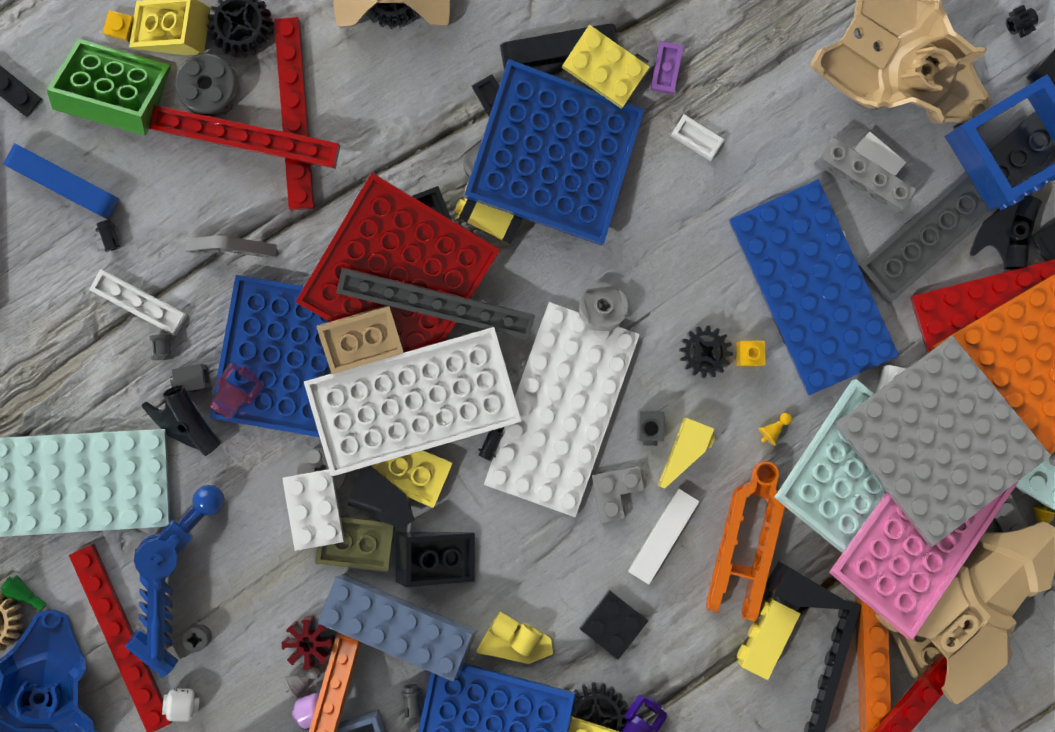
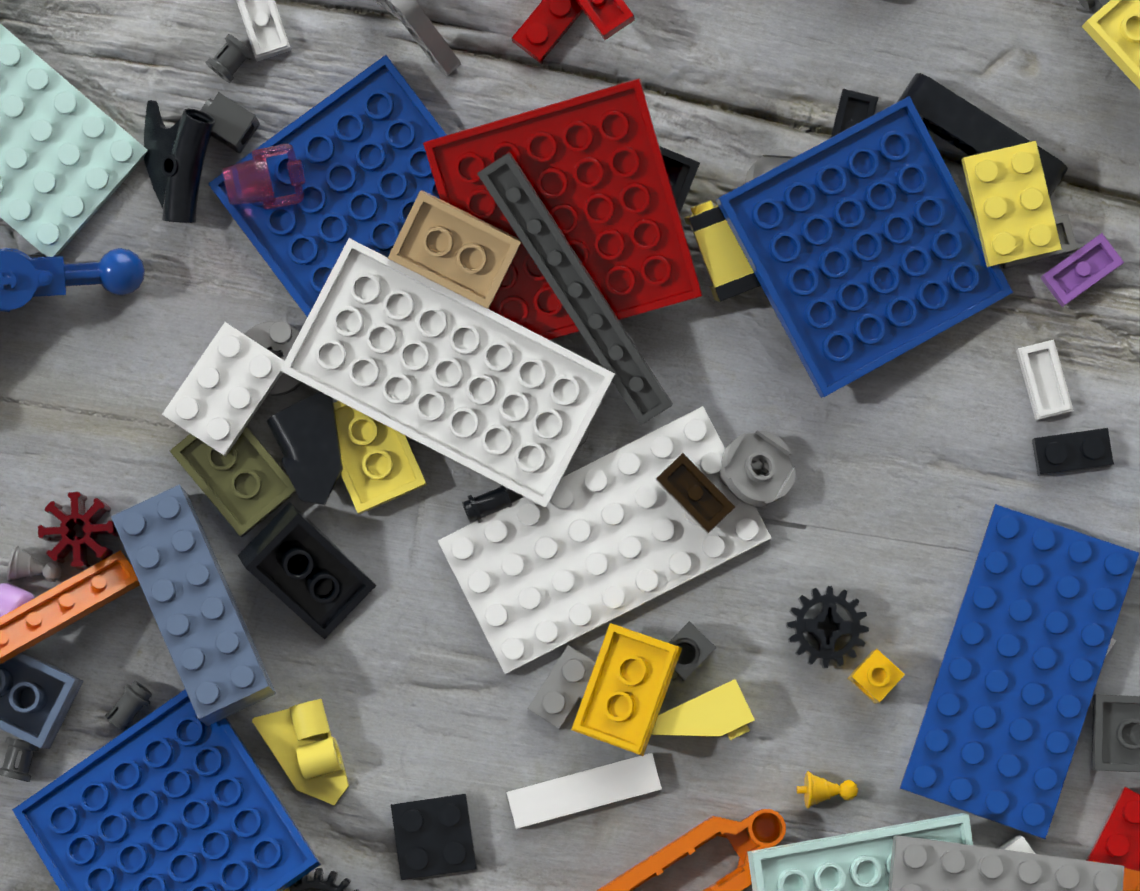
camera: 50 degrees right, 5 degrees down
(585, 347) = (695, 493): none -> dark brown plate
(640, 471) = (626, 689): none -> yellow tile
(742, 159) = (1072, 451): none -> black plate

